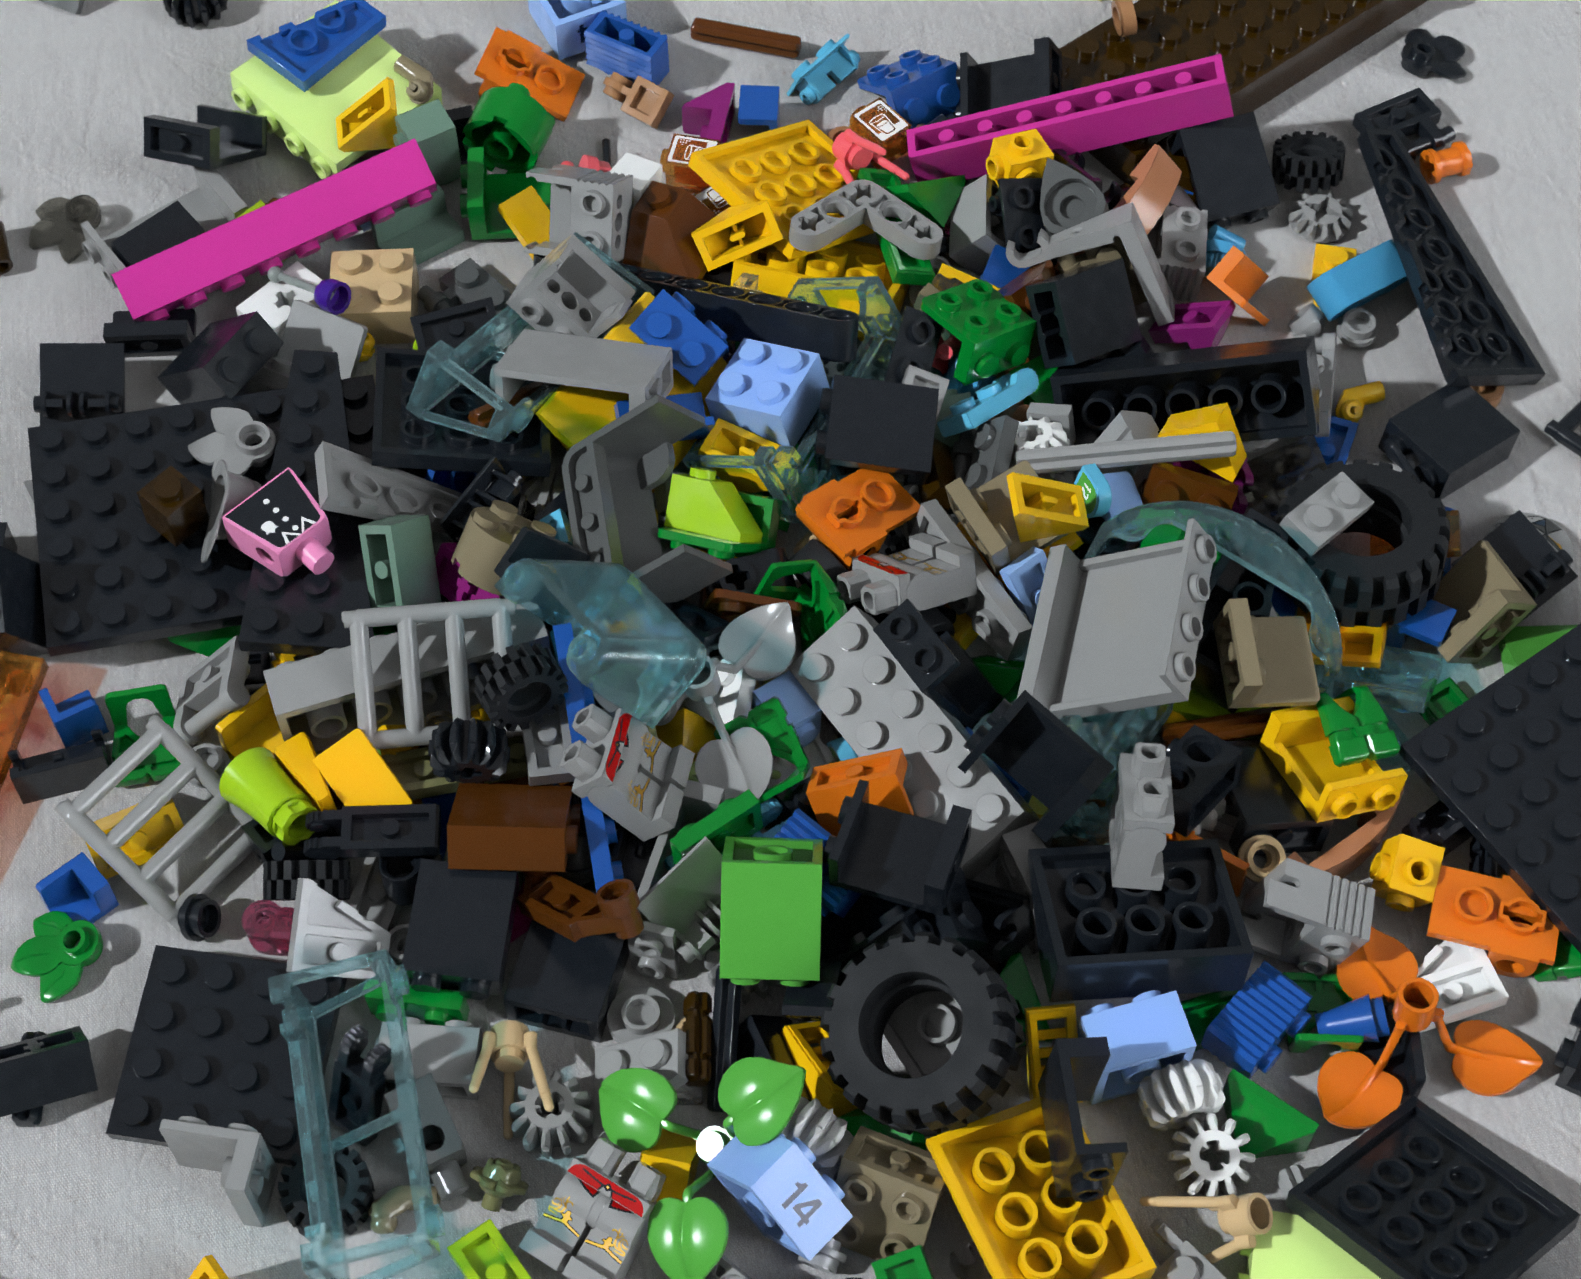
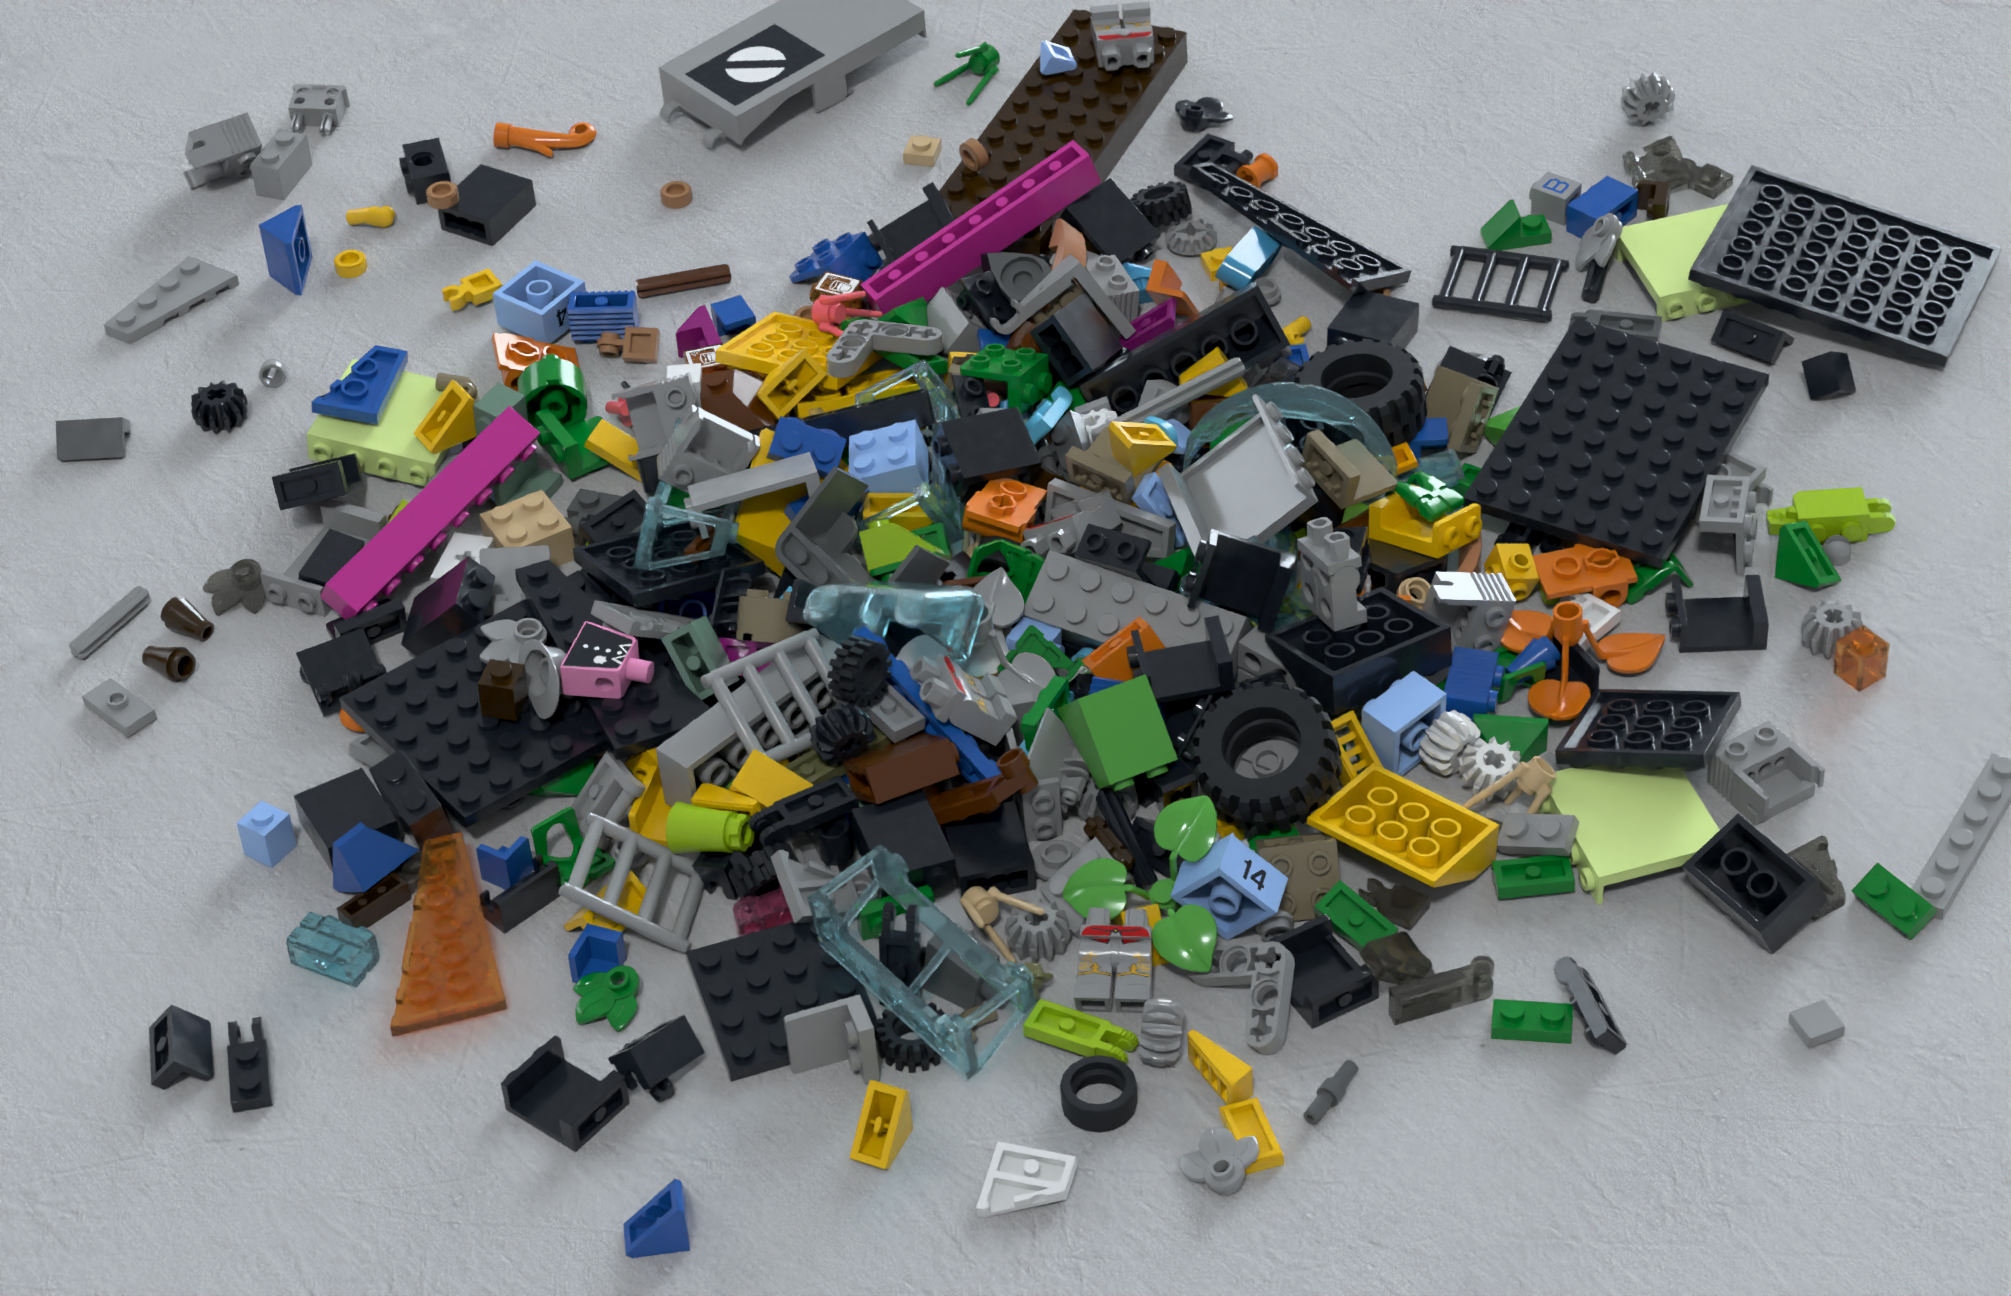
camera: 25 degrees left, 15 degrees down
(199, 917) = (698, 931): black plate -> none
(329, 294) = (506, 534): dark purple hinge -> none
(812, 78) = (765, 276): medium azure hinge -> none
(1018, 156) = (959, 263): yellow brick -> none
(1070, 1077) = (1394, 763): black panel -> none
(1326, 513) = (1334, 372): light grey plate -> none

